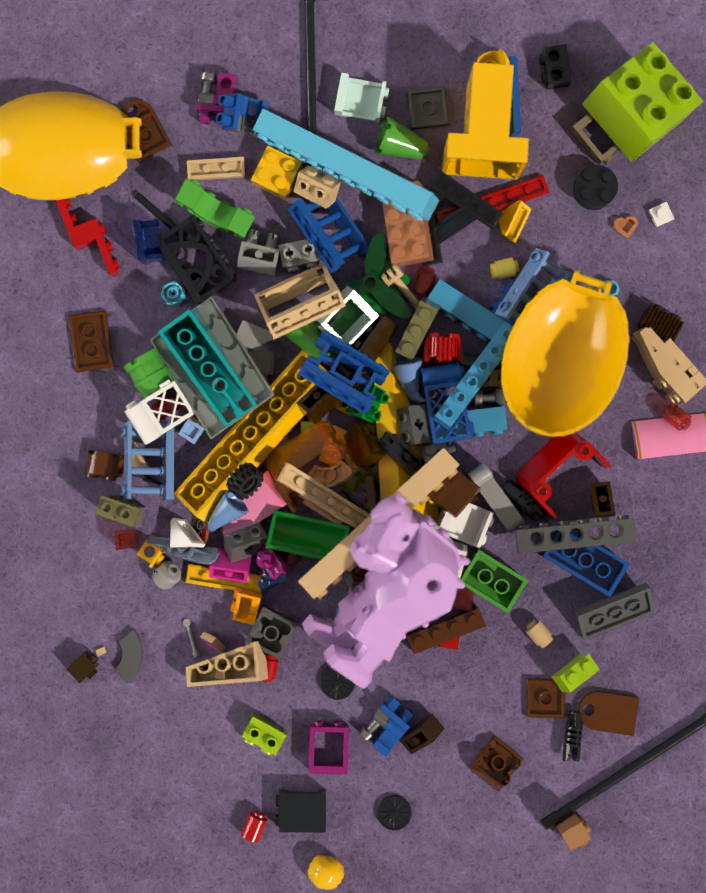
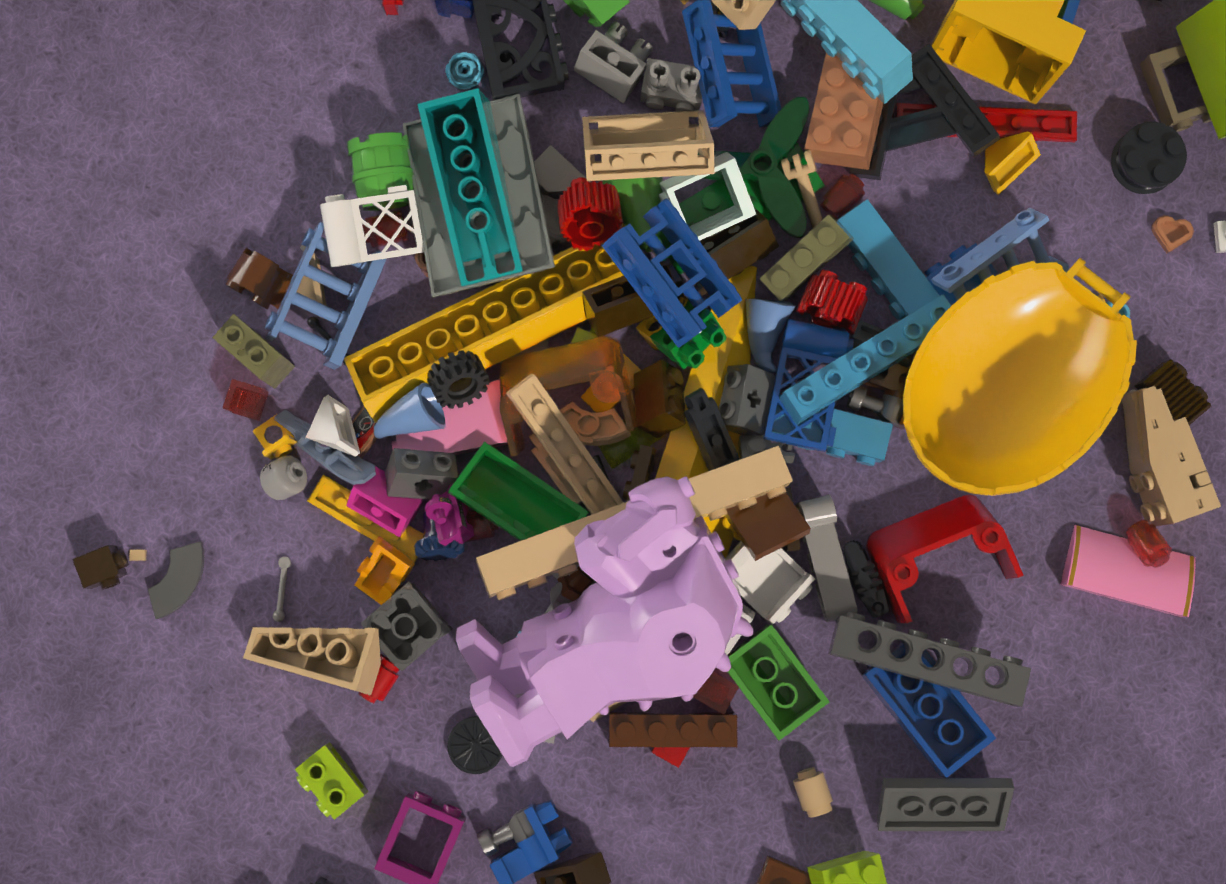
camera: 20 degrees right, 5 degrees down
(91, 341) = (316, 93): reddish brown tile -> none
(191, 431) = (409, 280): light blue plate -> none
(212, 641) = (312, 607): tan tile -> none
(282, 355) = (589, 213): none -> red brick
(504, 268) = (968, 223): light yellow brick -> none
(602, 499) = (989, 623): dark brown slope -> none

